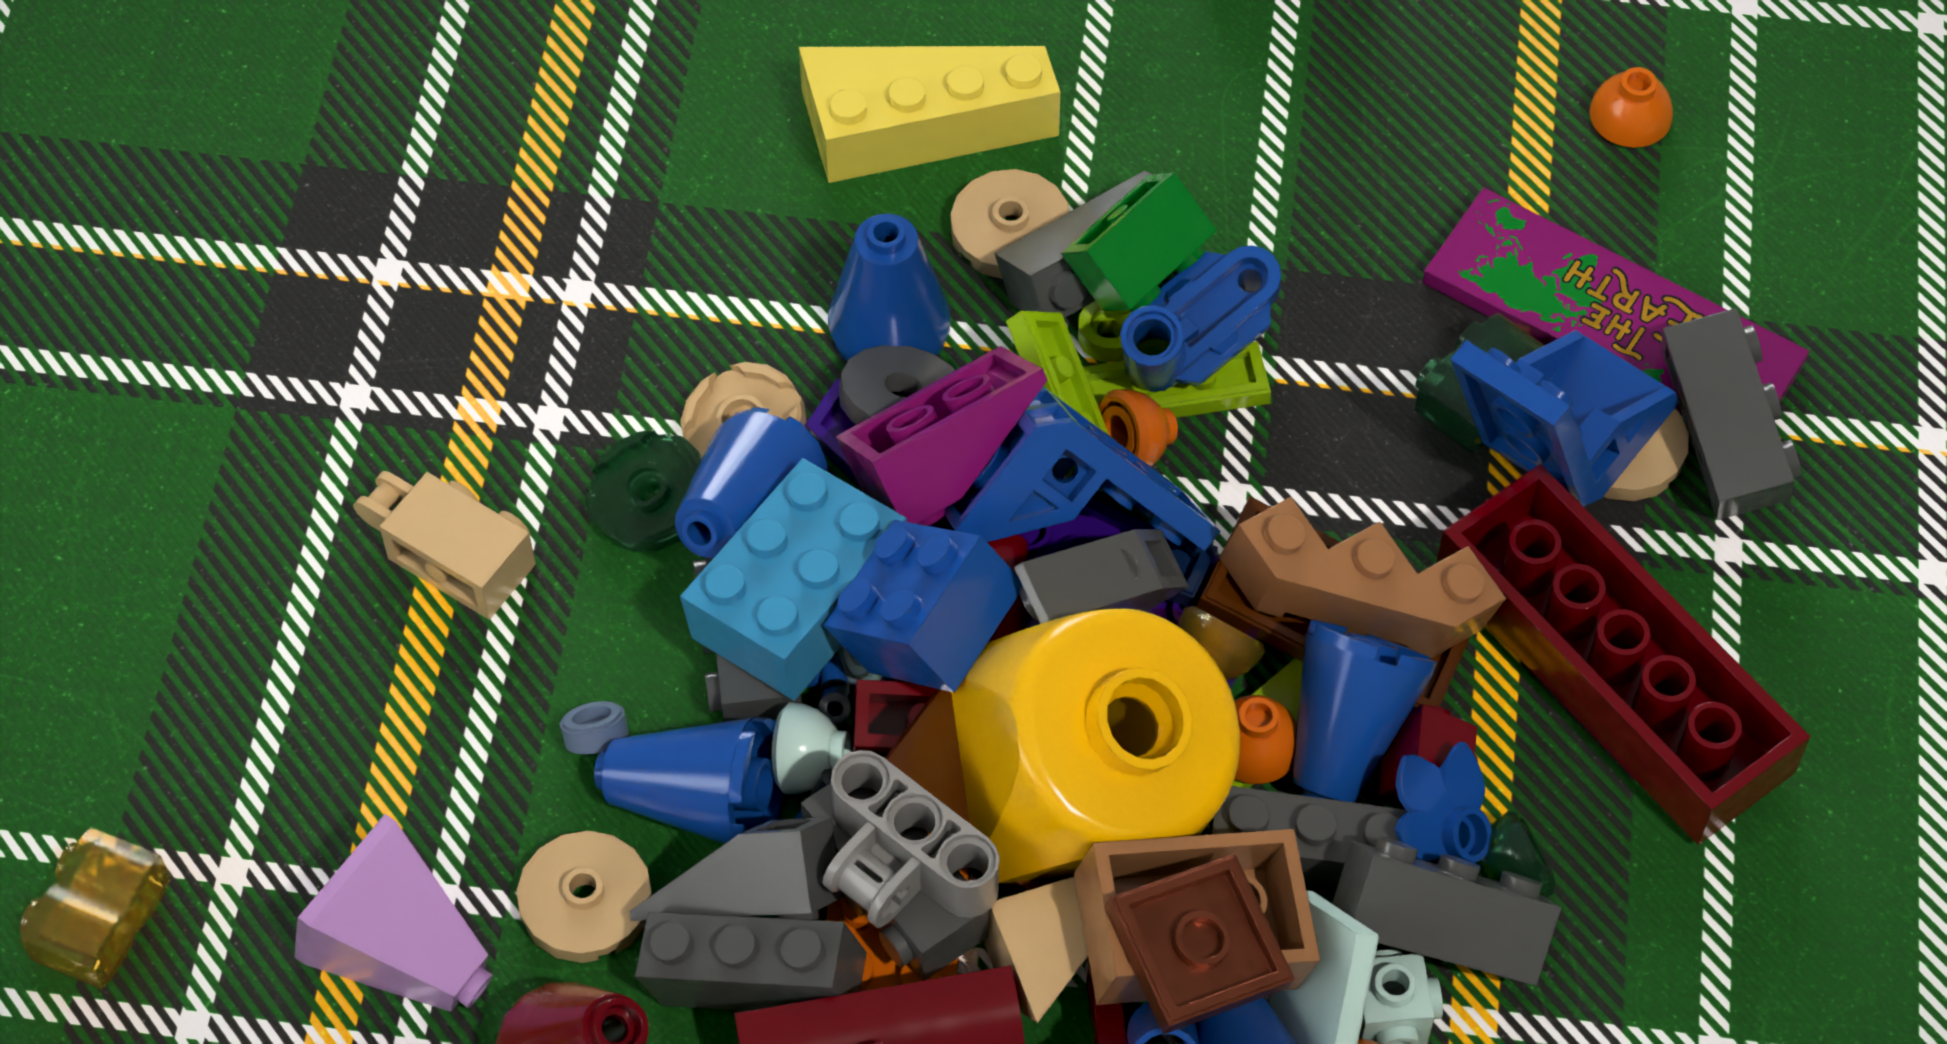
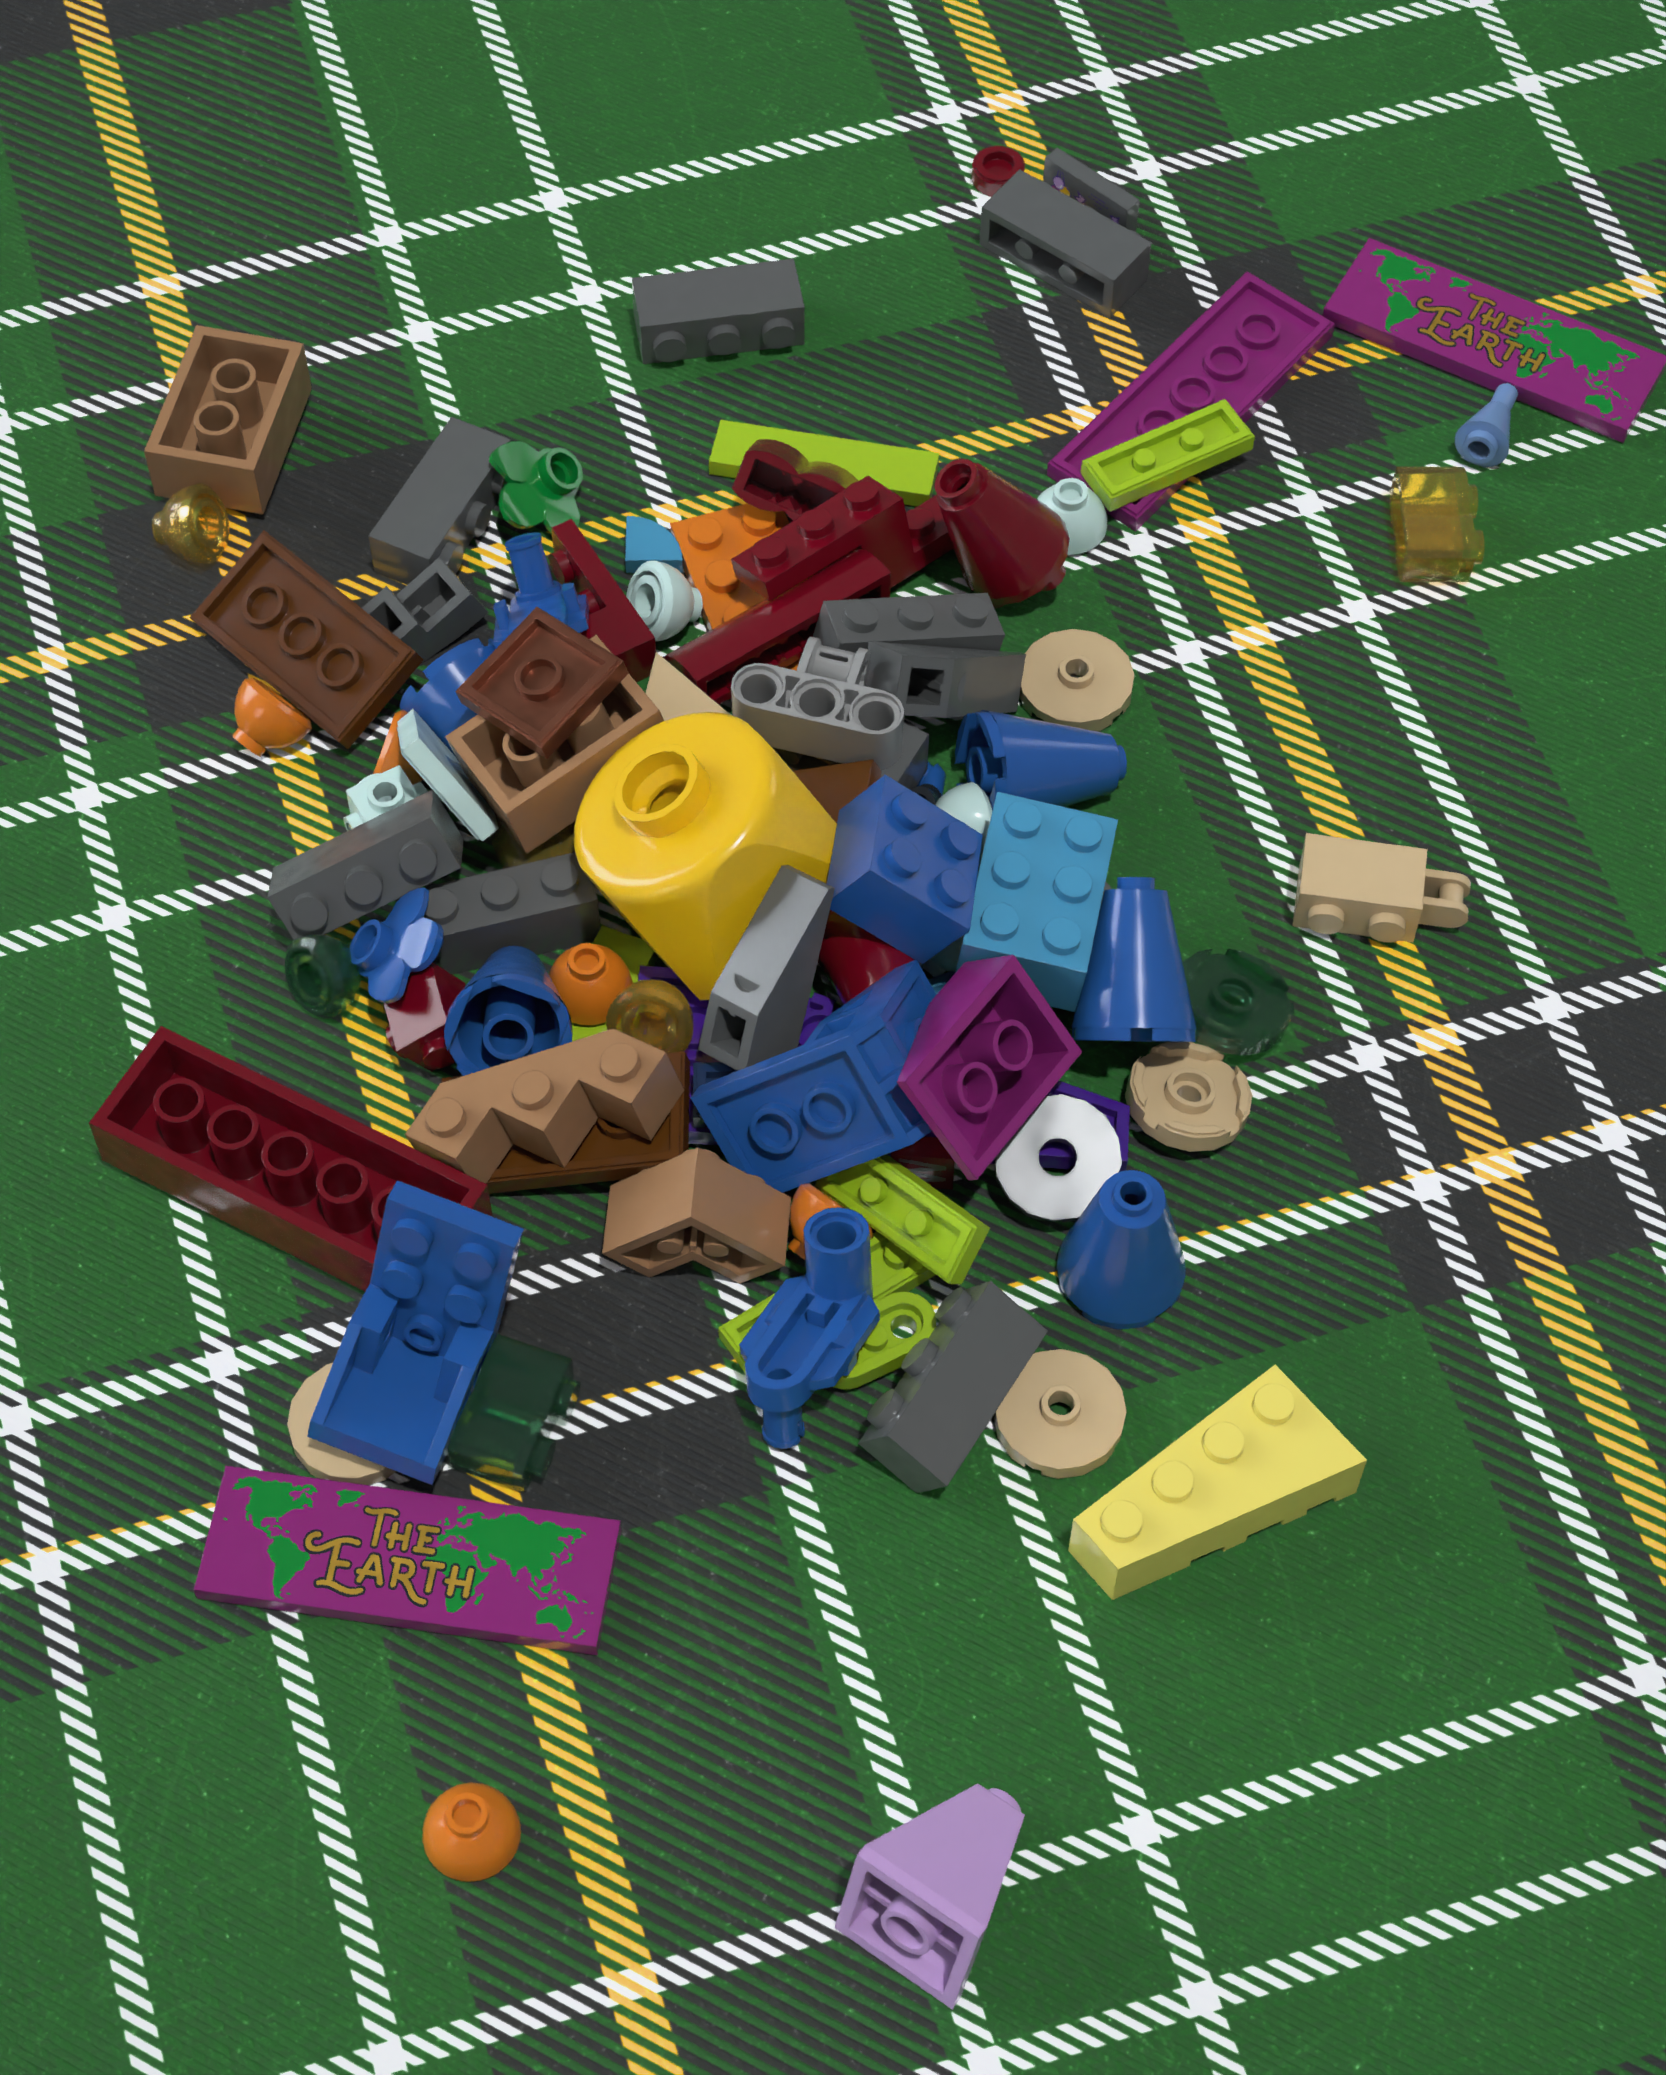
camera: 155 degrees right, 0 degrees up
(392, 926) = (1198, 579): lavender slope -> none
(593, 727) = (1147, 792): sand blue tile -> none
(1140, 243) = (900, 1341): green brick -> none
(1257, 449) = (699, 1213): none -> medium nougat brick
(1730, 413) = (255, 1449): dark grey brick -> none

